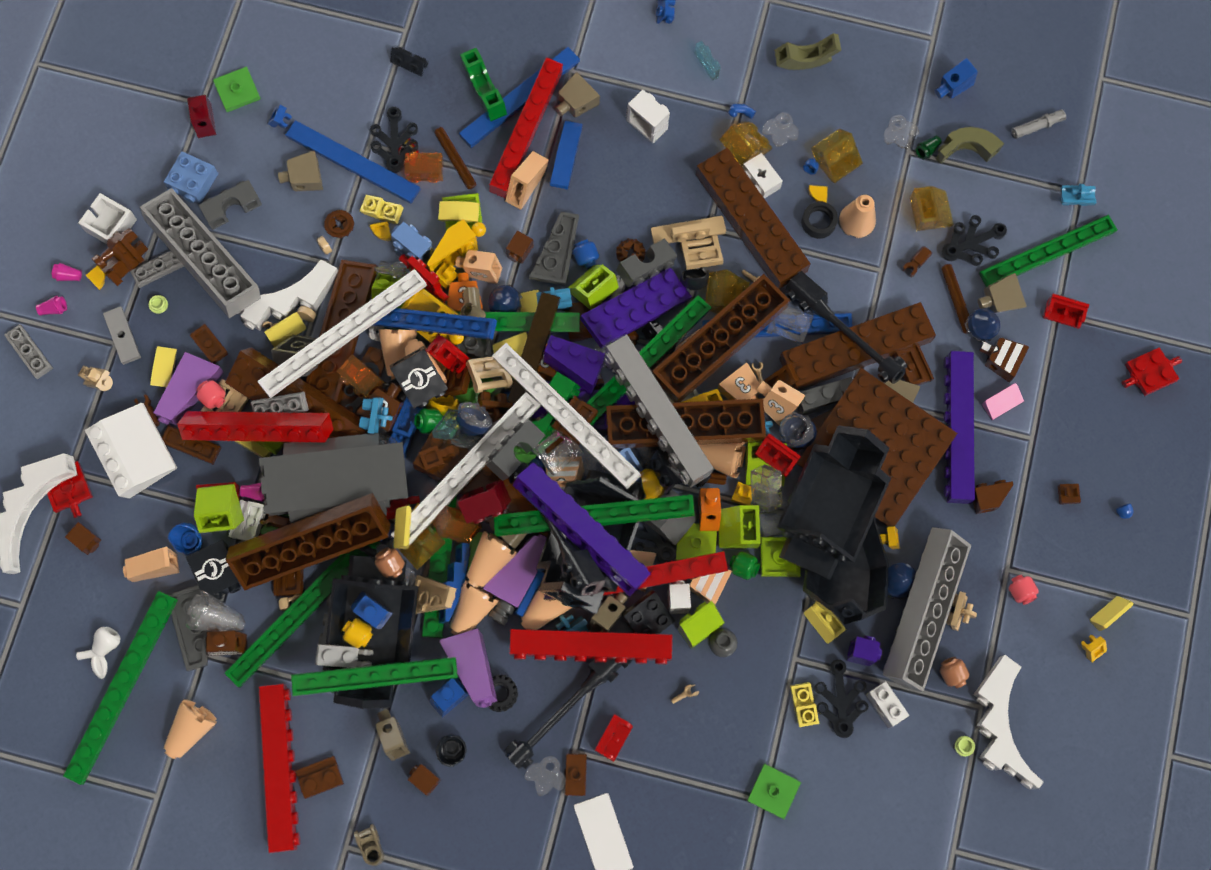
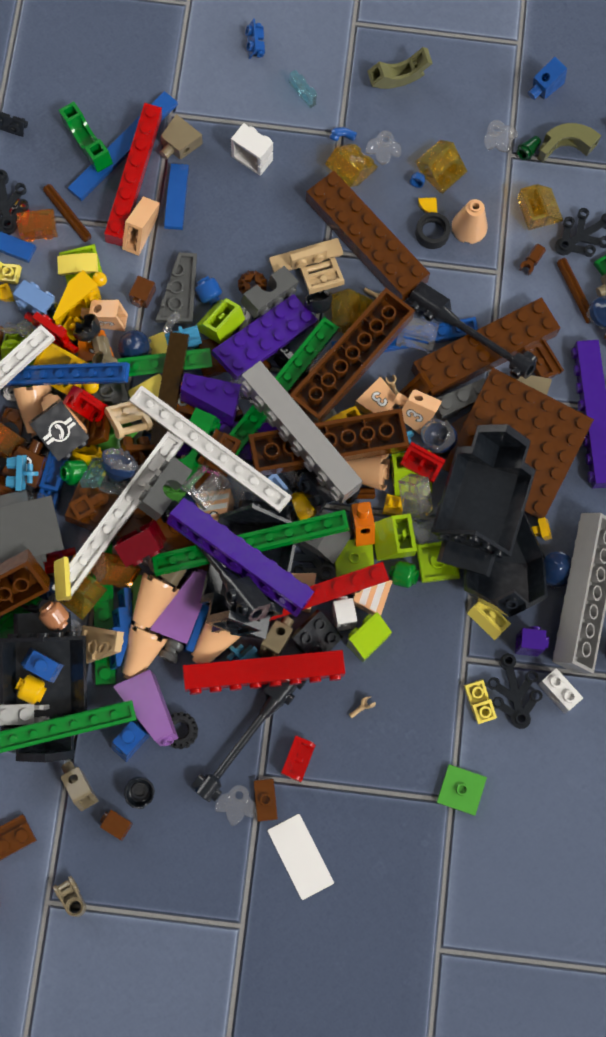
camera: 10 degrees left, 0 degrees up
(460, 279) = (88, 329): none -> black hair
(548, 277) = (171, 321): none -> clear tile
(723, 642) = (393, 652): dark grey piece -> none
(762, 175) = (372, 193): white brick -> none

